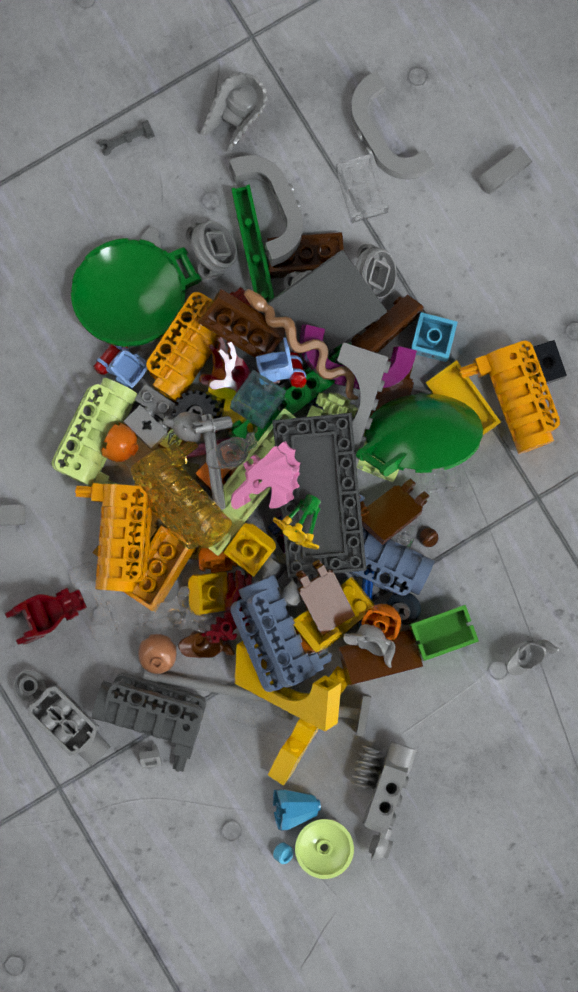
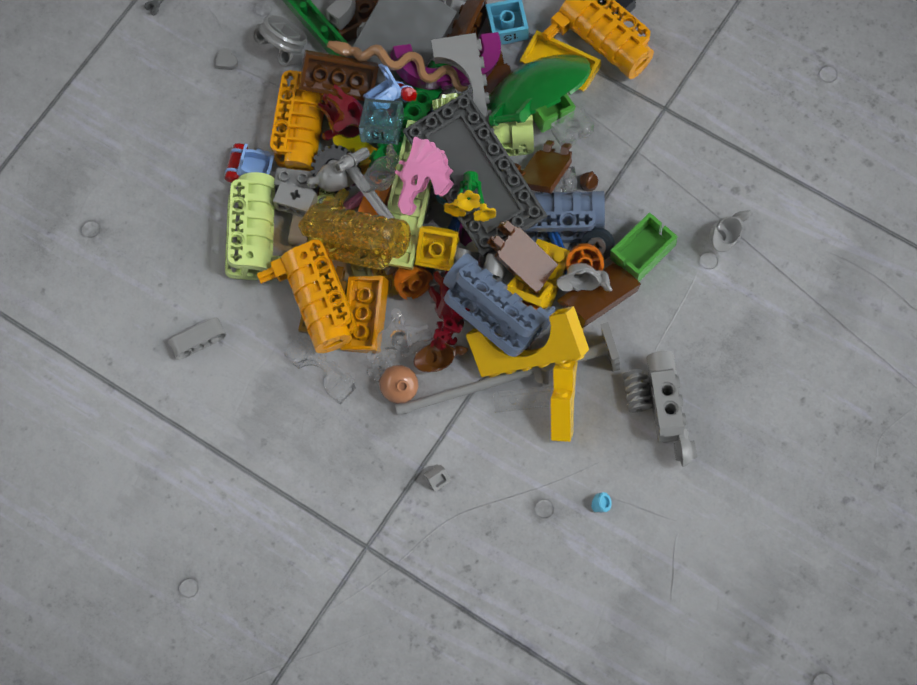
camera: 15 degrees left, 15 degrees down
(46, 612) = (279, 395): dark red animal -> none
(61, 718) = (339, 478): light grey brick -> none
(121, 443) = (280, 221): orange cylinder -> none
(130, 291) = (228, 102): green dish -> none
(152, 712) = (419, 439): dark grey piece -> none
(207, 592) = (418, 309): yellow slope -> none
(294, 808) = (588, 456): dark azure cone -> none
(324, 863) = (638, 465): yellowish green dish -> none

